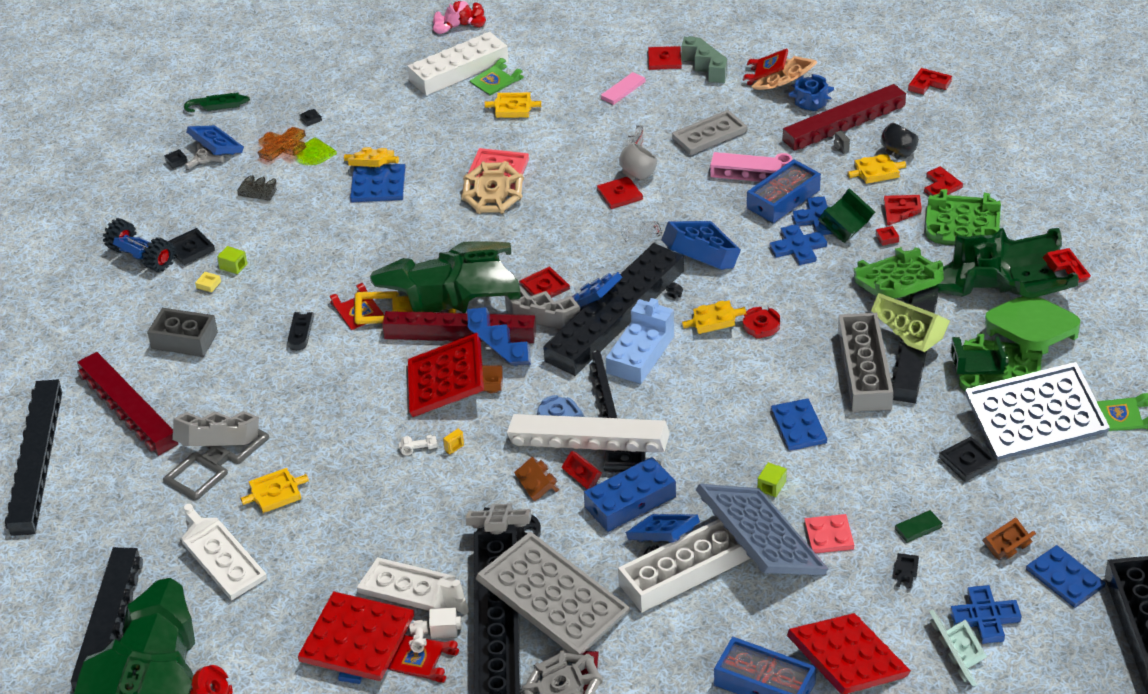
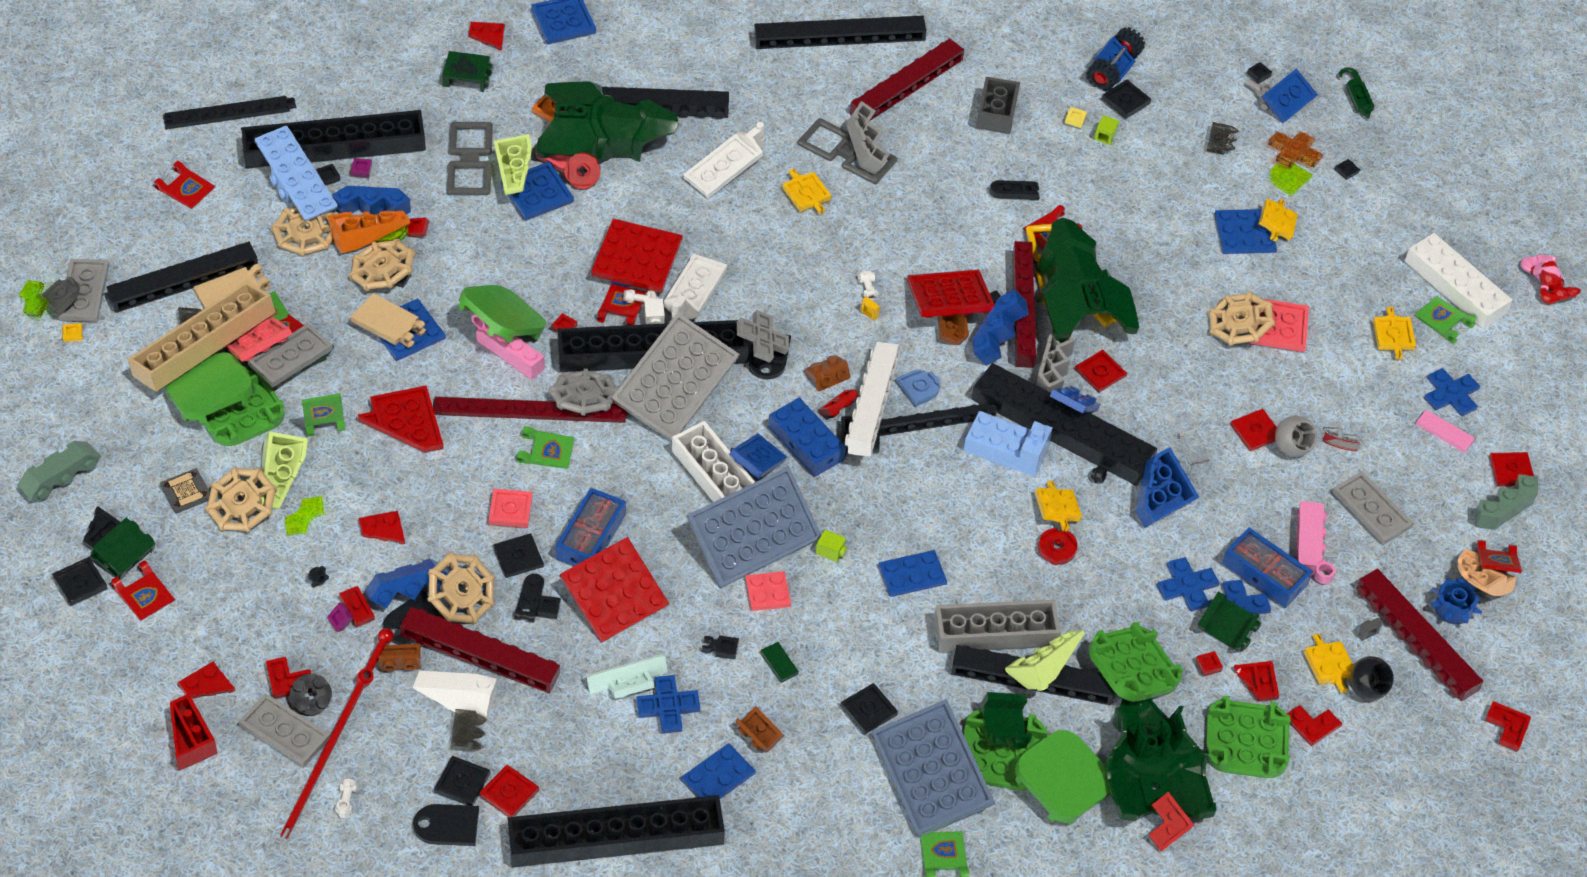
camera: 80 degrees right, 10 degrees up
(579, 81) = (1452, 392): none -> blue plate

